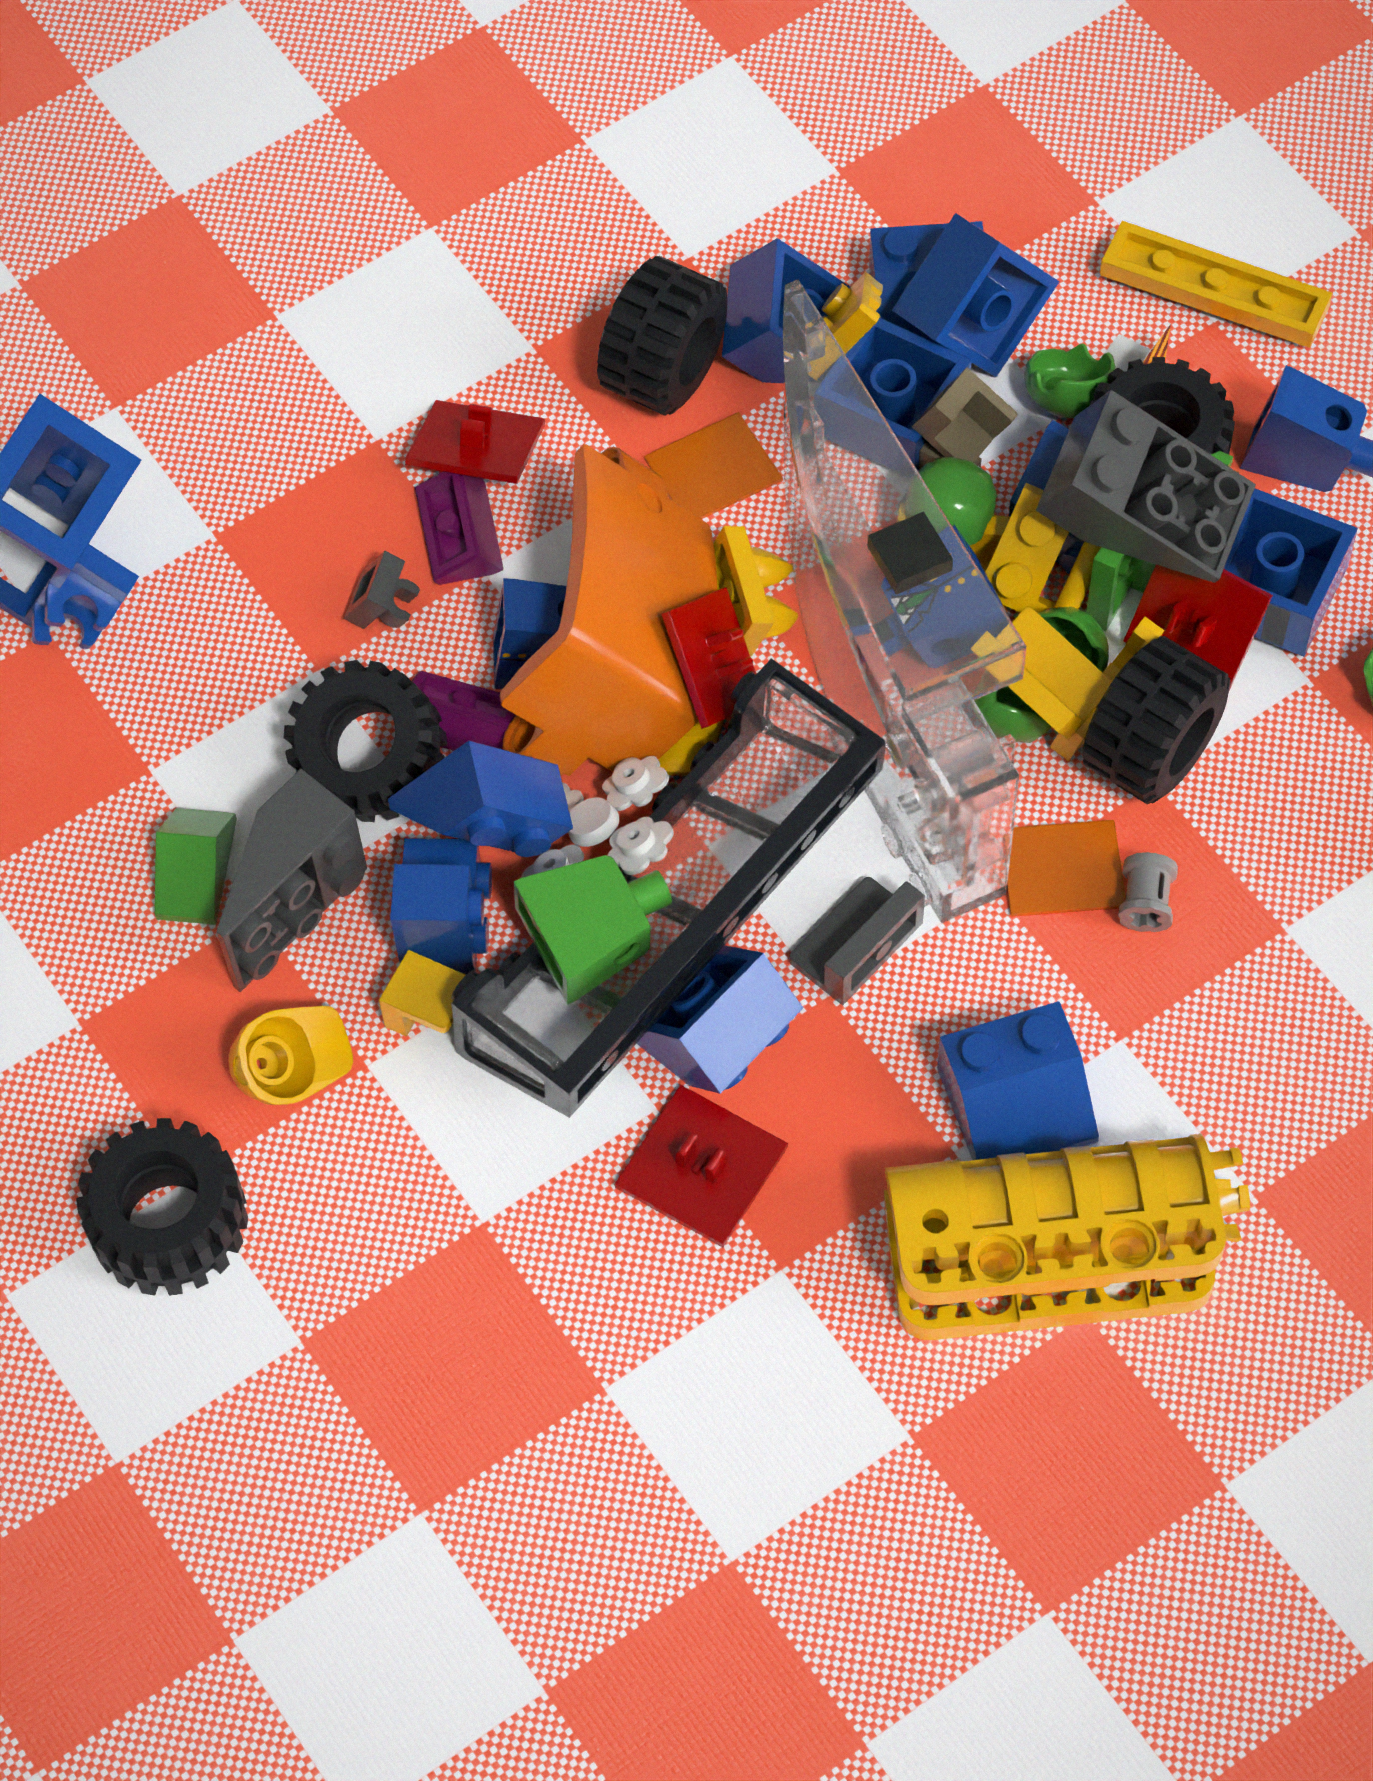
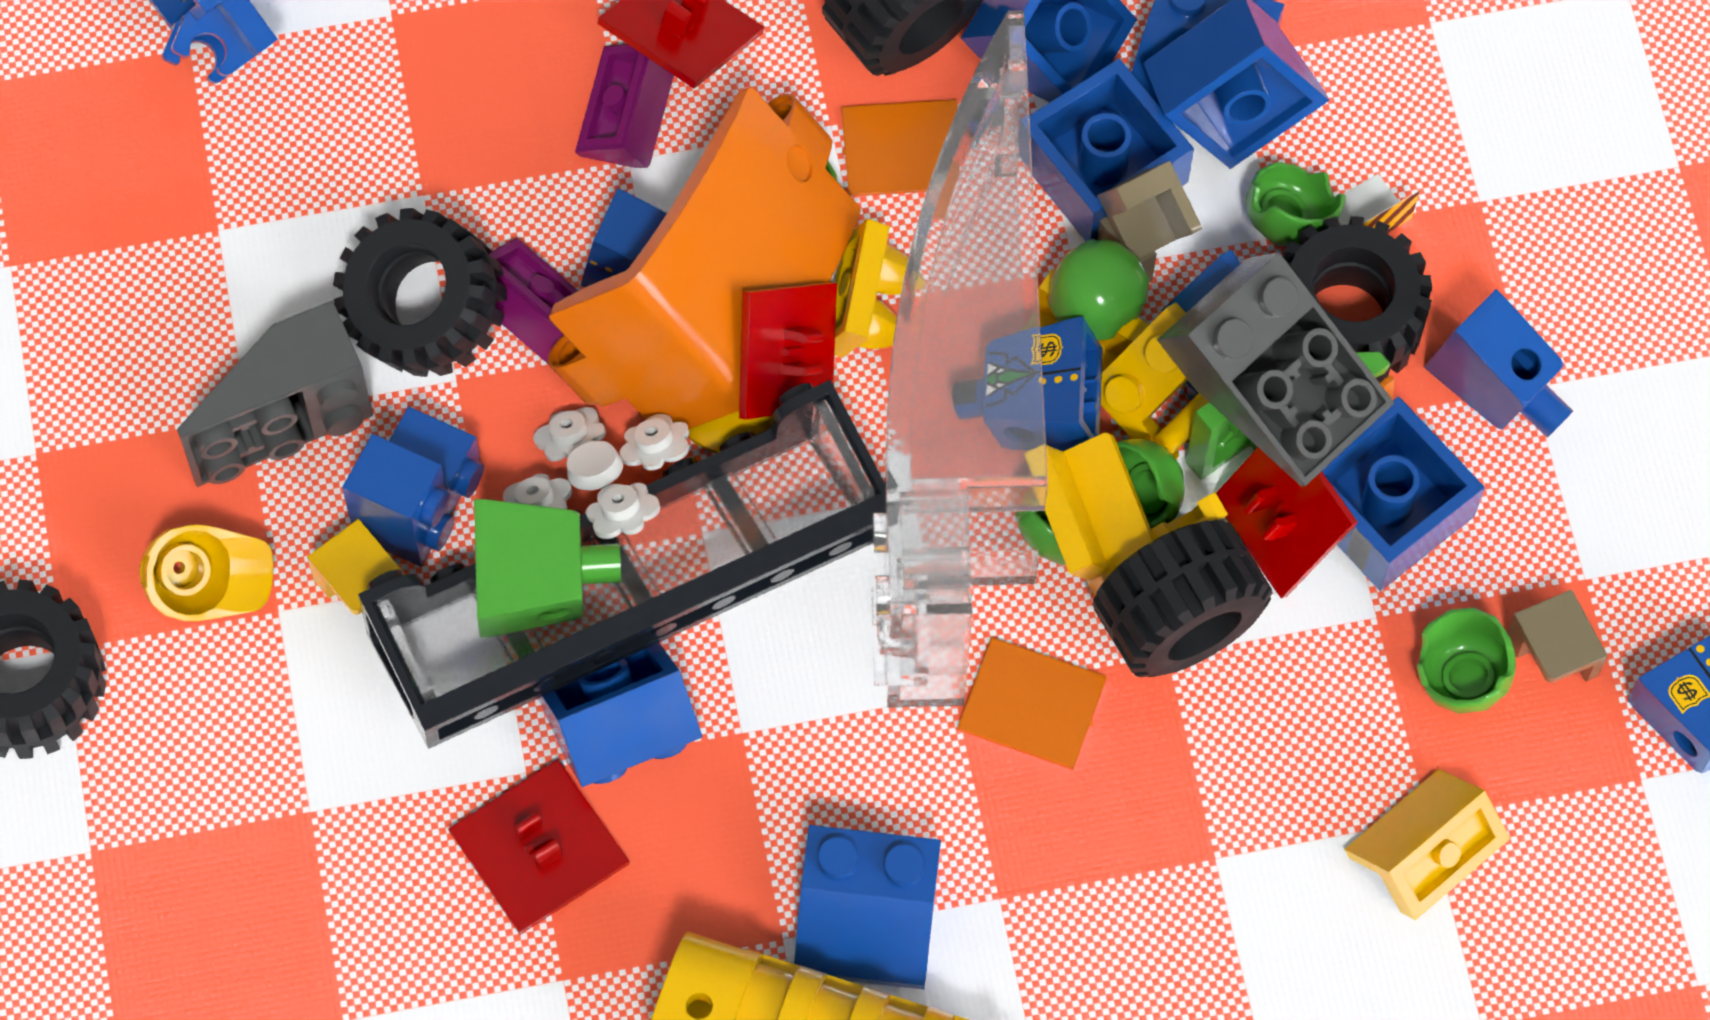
camera: 20 degrees right, 5 degrees up
(192, 864) = (209, 338): bright green slope -> none
(376, 593) = (510, 140): dark grey tile -> none
(489, 799) = (497, 408): blue slope -> none
(853, 310) = (1074, 67): yellow wing -> none
(859, 937) = (797, 688): dark grey panel -> none
(910, 552) = (981, 343): pearl dark grey tile -> none
(1148, 892) = (1095, 765): light grey bush -> none
(1216, 284) = (1498, 164): yellow plate -> none

